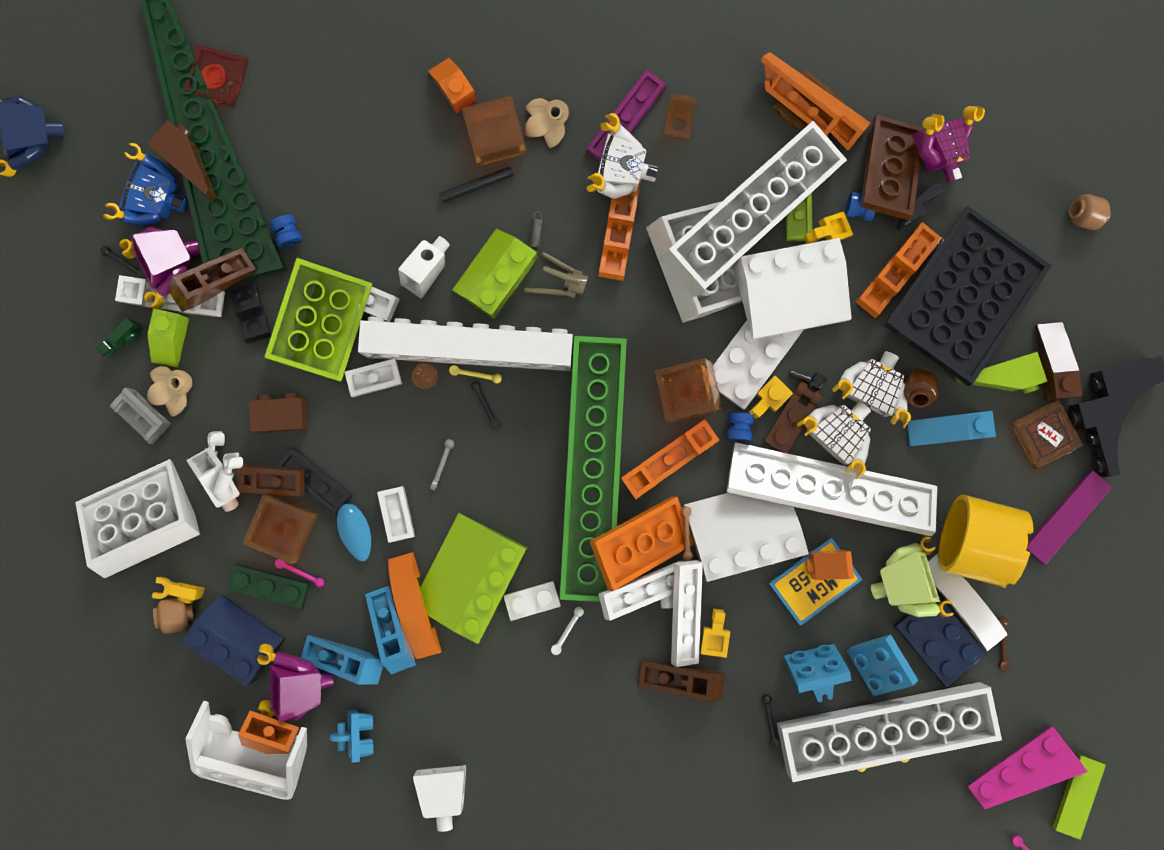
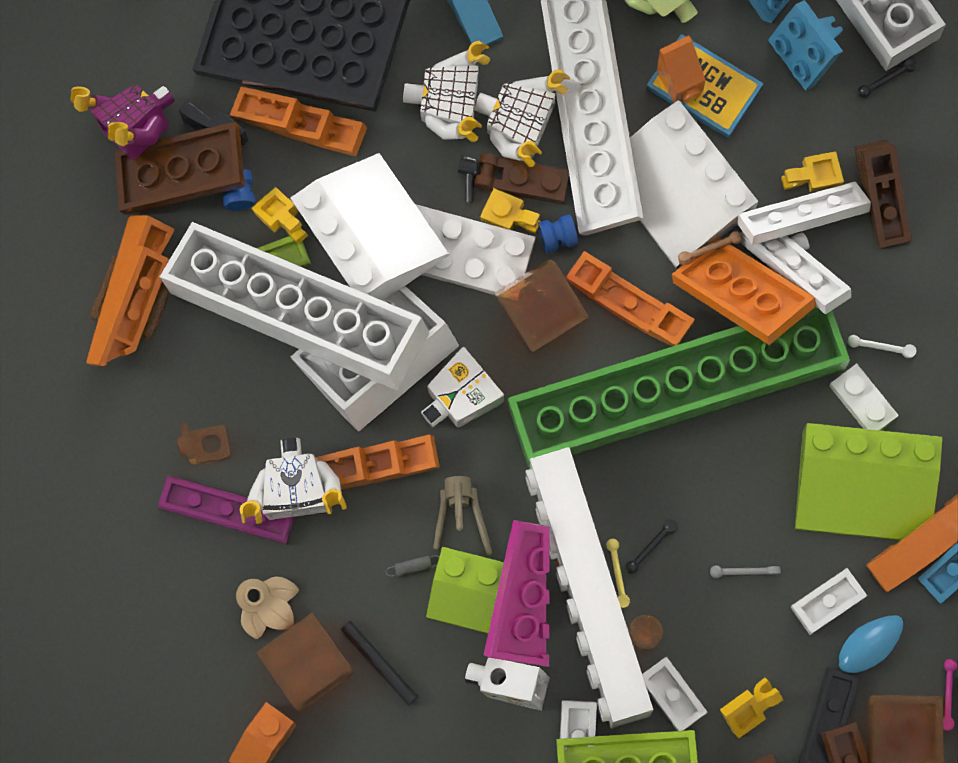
camera: 105 degrees left, 10 degrees down
(341, 426) = (747, 709): none -> yellow plate
(470, 289) = (519, 613): none -> dark pink wing
(647, 311) = (461, 392): none -> white torso
(920, 388) = (432, 45): reddish brown head -> none

